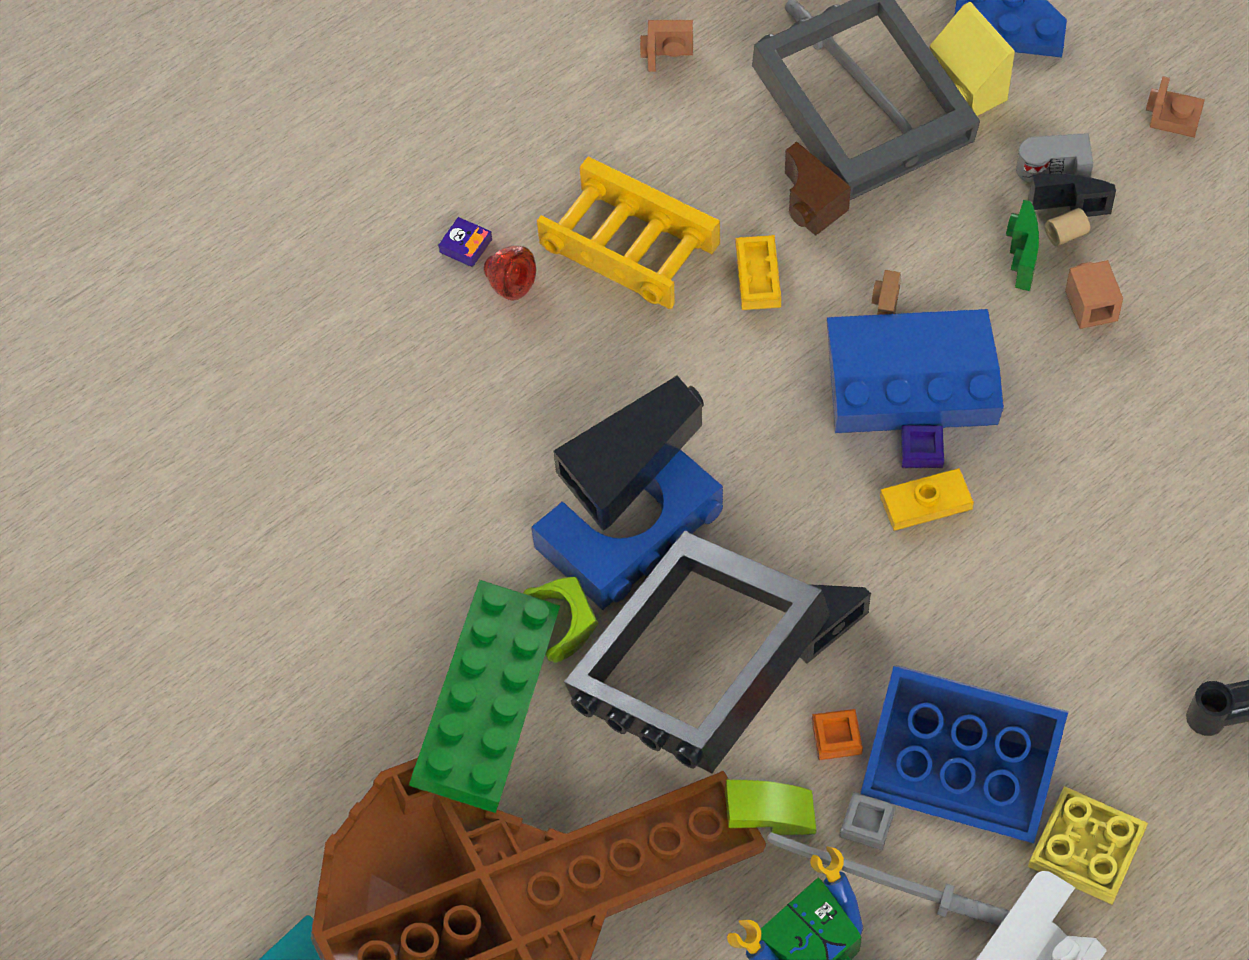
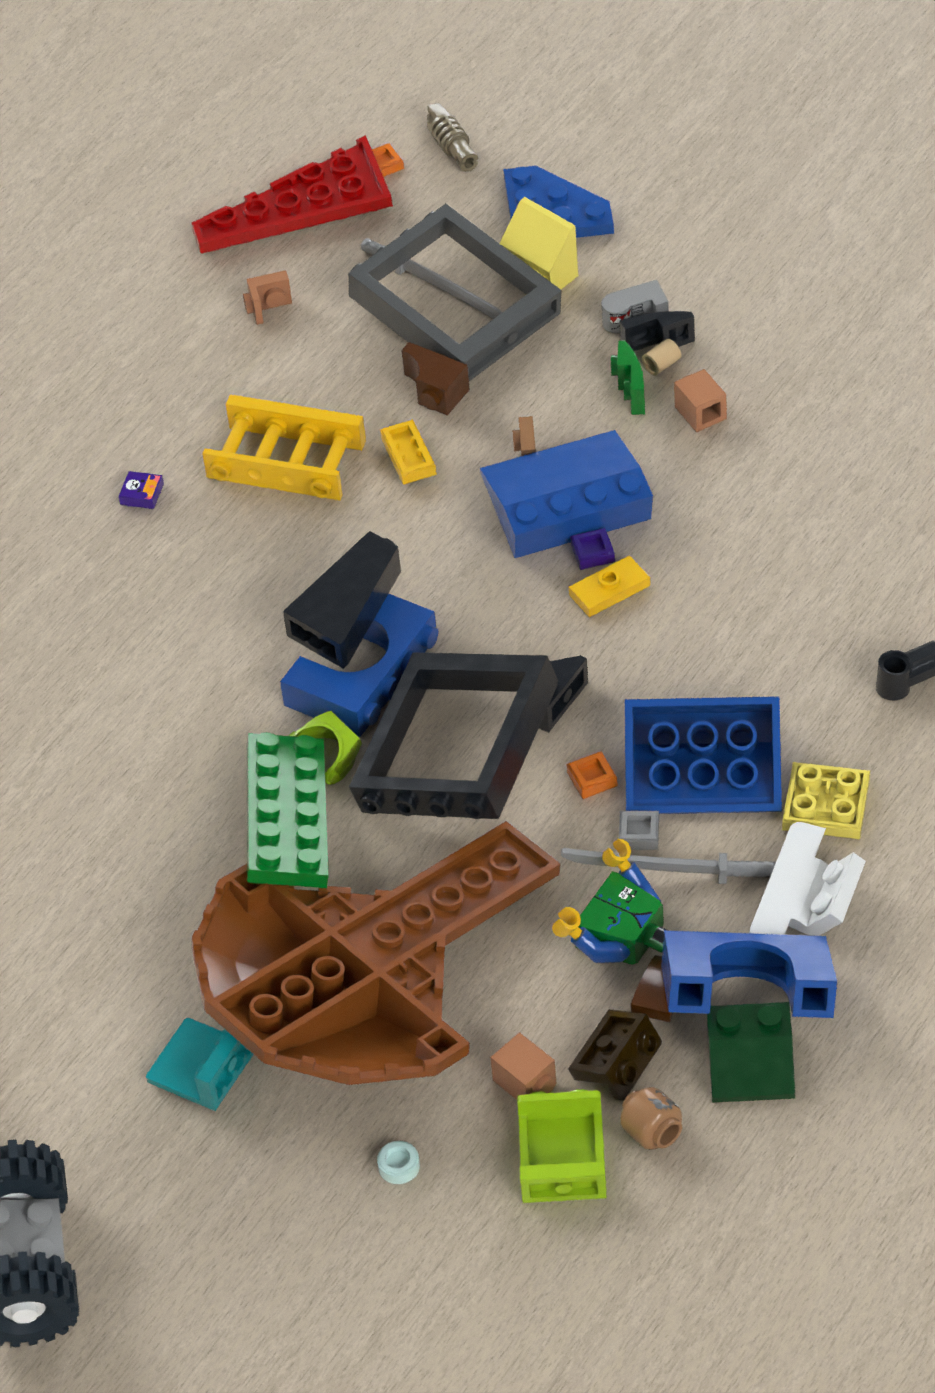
camera: 15 degrees left, 10 degrees down
(511, 272) = (191, 500): clear red brick -> none
(770, 804) = (551, 834): lime slope -> none
(1174, 111) = (723, 251): nougat bracket -> none

